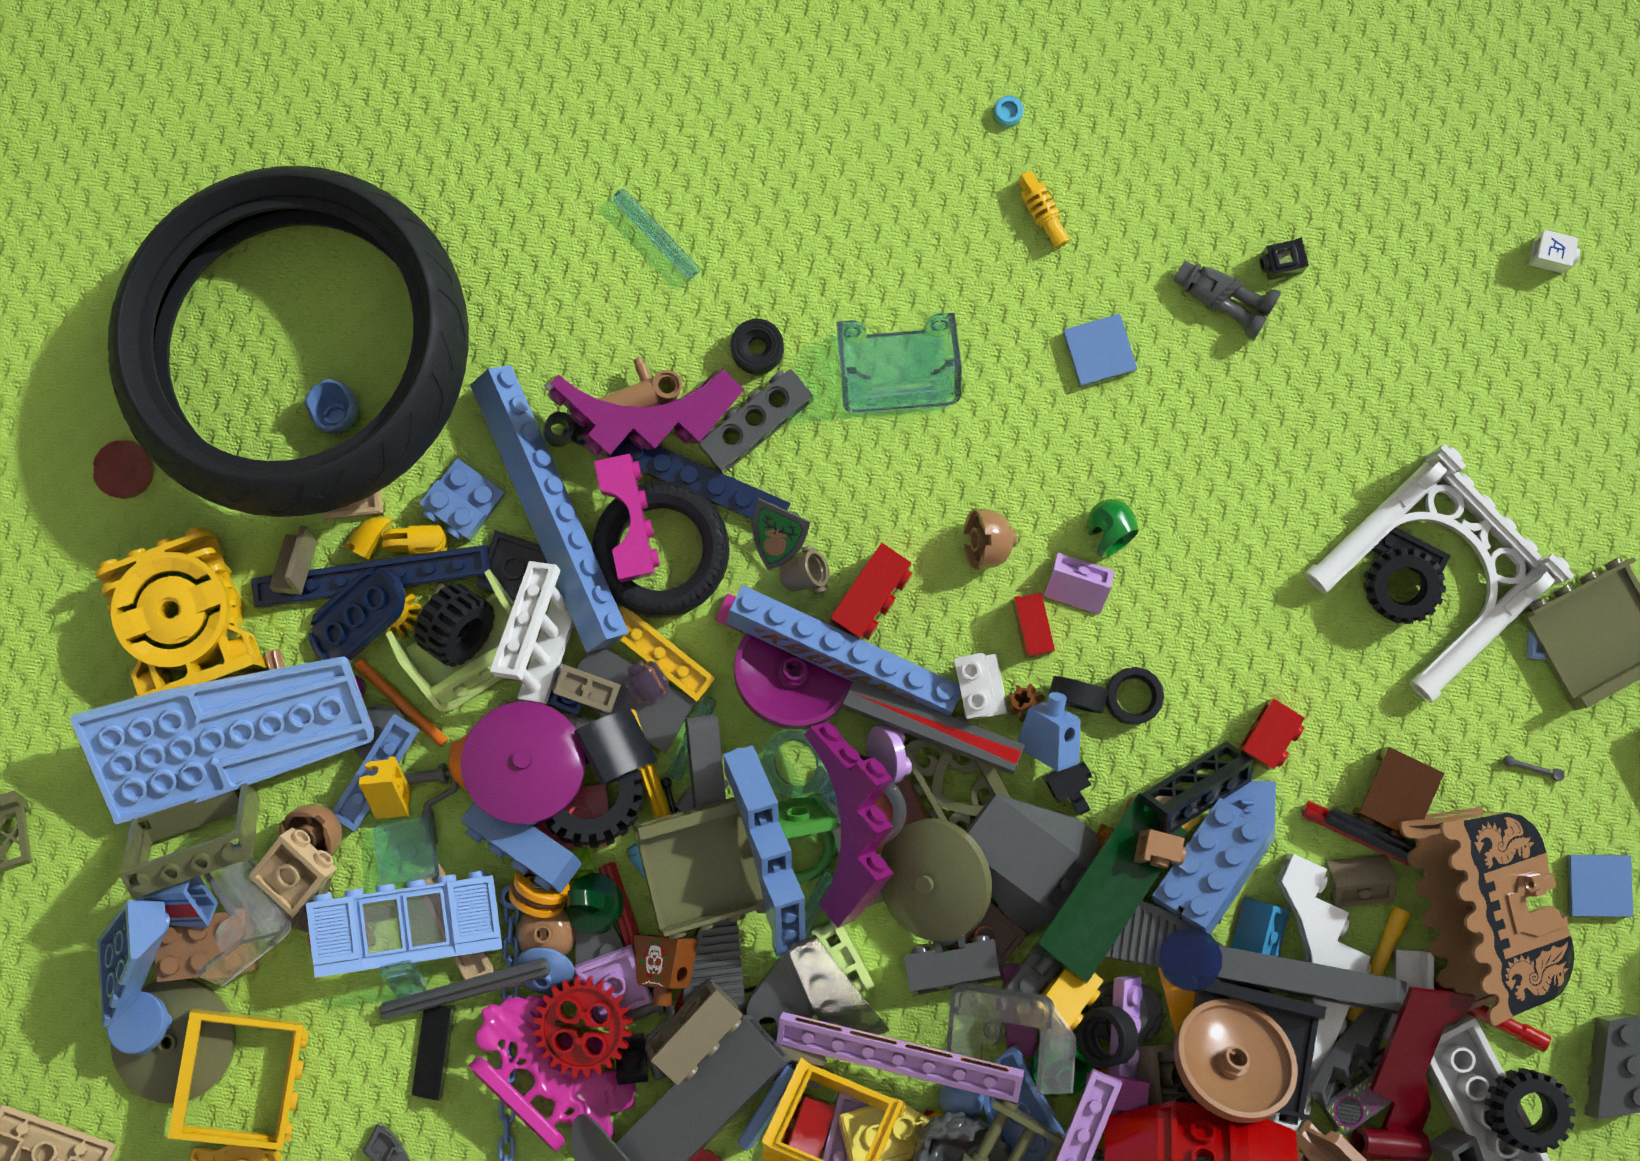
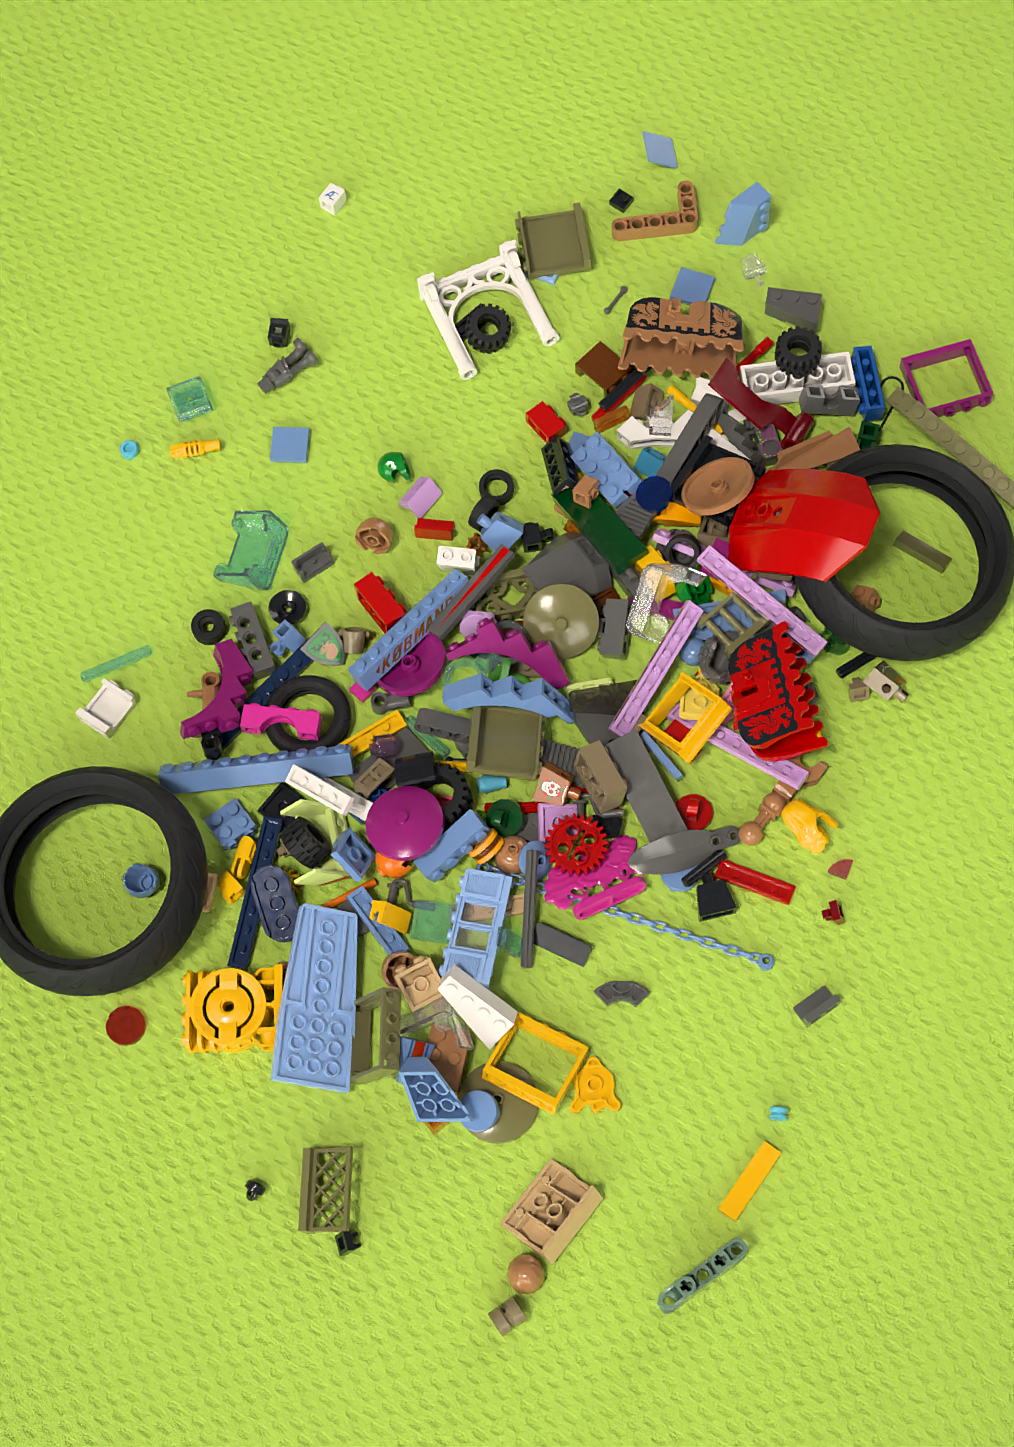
camera: 65 degrees left, 15 degrees down
(281, 971) = (477, 1006): none -> white wedge
(294, 562) = (228, 933): dark tan panel -> none
(458, 699) = (352, 854): none -> medium blue plate
(579, 250) = (107, 708): none -> white panel
(725, 663) = (390, 701): none -> dark grey piece
(774, 472) = (287, 637): none -> medium blue brick
(828, 436) = (284, 600): none -> black dish
(912, 461) = (312, 562): none -> dark grey hinge
(1121, 150) = (188, 389): none -> clear light blue brick
(1314, 835) = (611, 419): none -> clear orange plate
(1321, 773) = (577, 404): none -> dark grey gear
(1335, 922) = (661, 418): none -> clear slope

